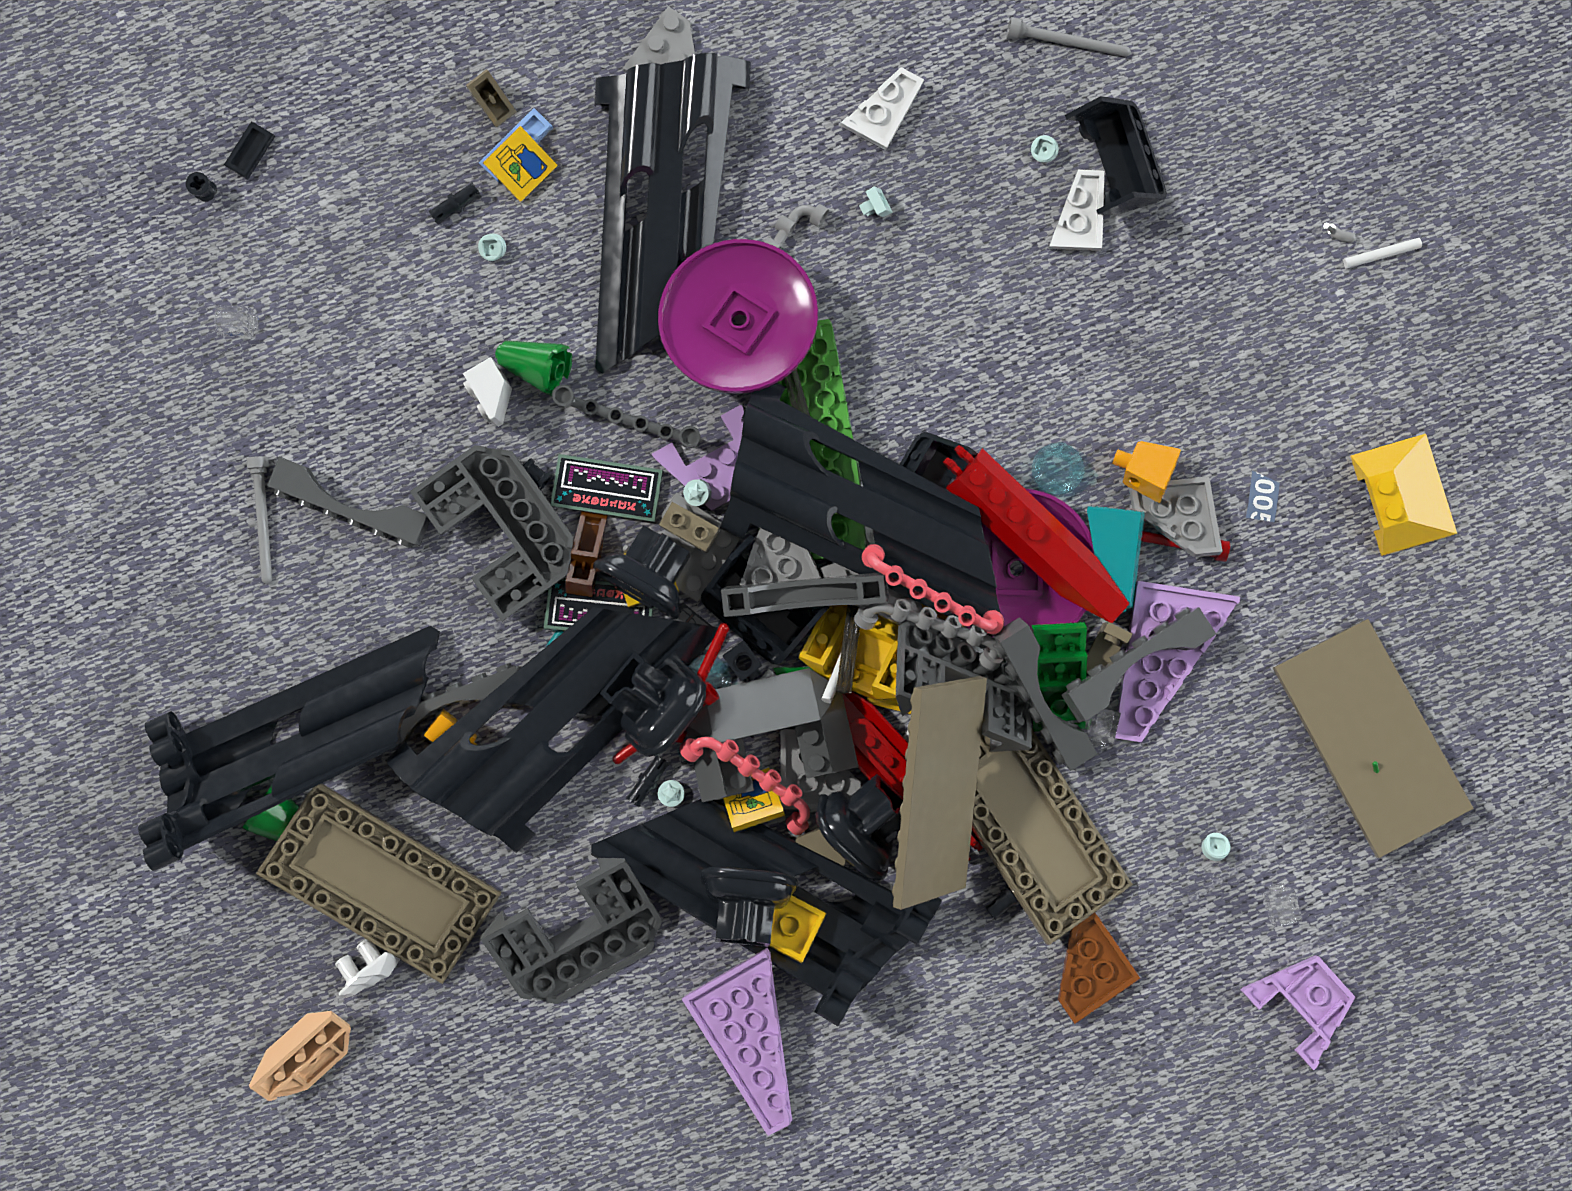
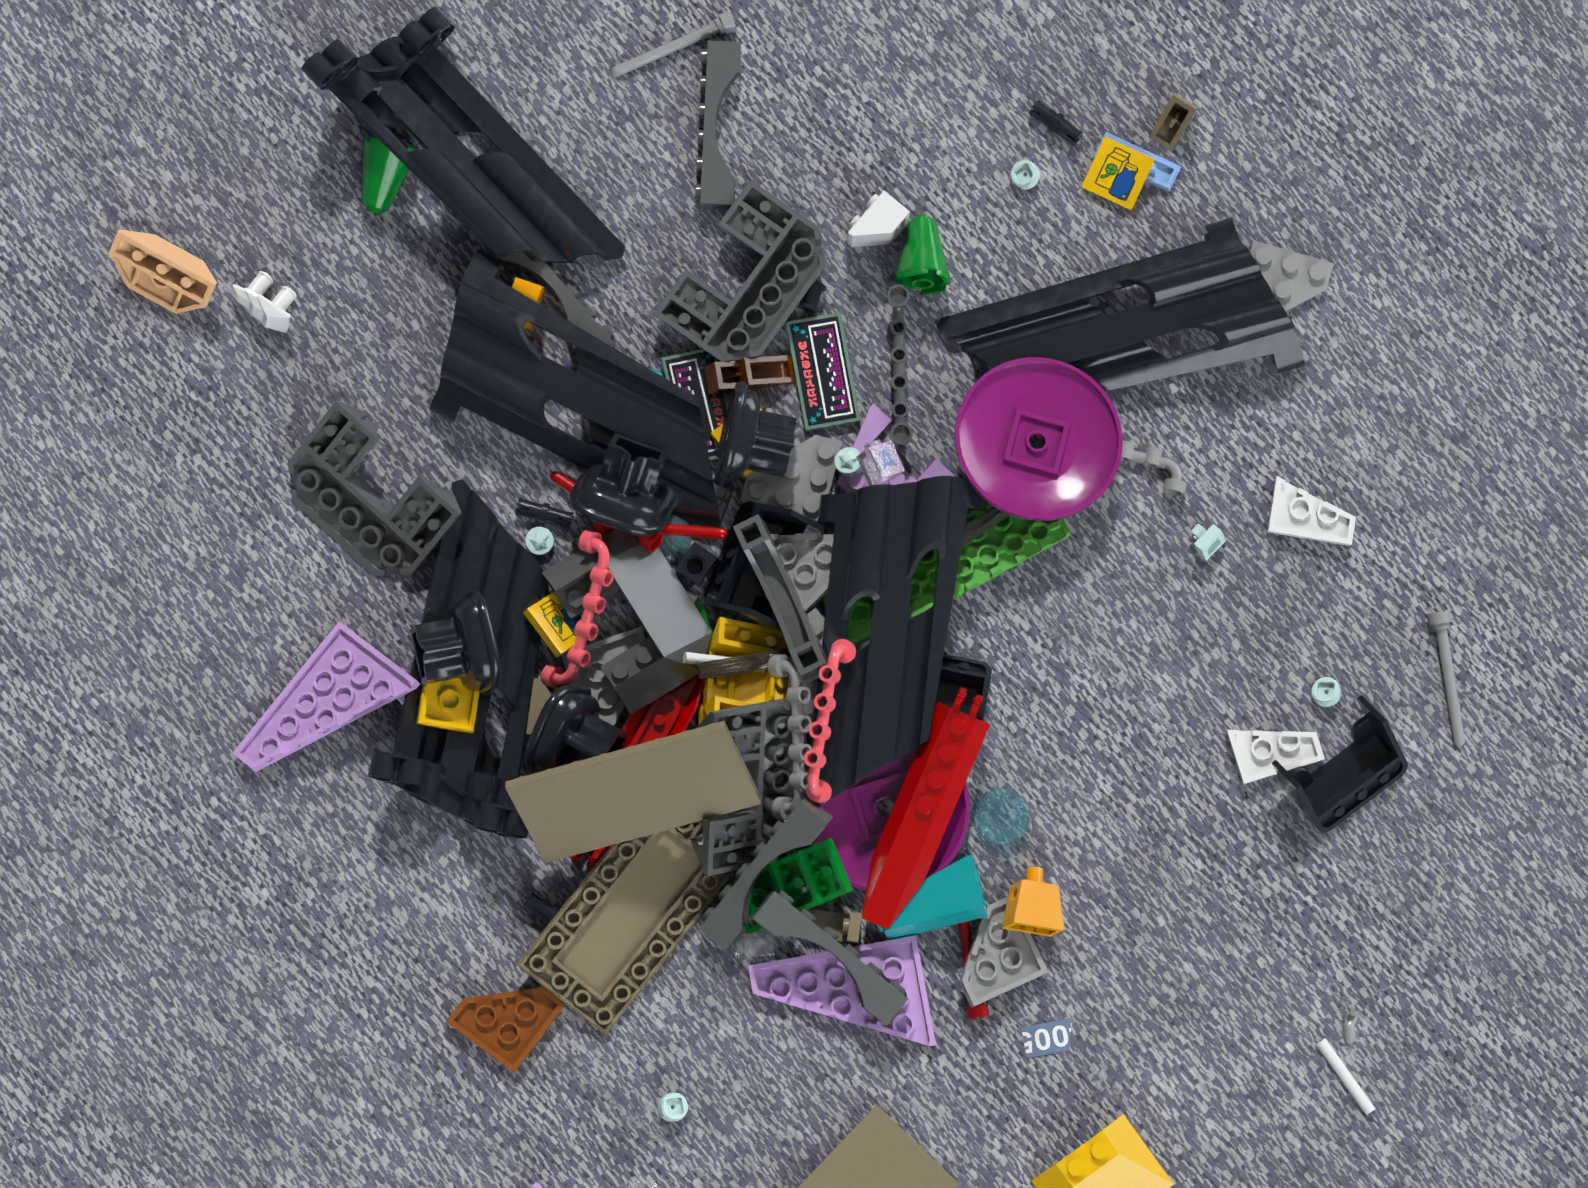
camera: 75 degrees right, 5 degrees down
(379, 882) = (355, 286): dark tan tile -> none
(689, 527) = (810, 465): dark tan brick -> none
(708, 464) = (880, 462): none -> clear brick

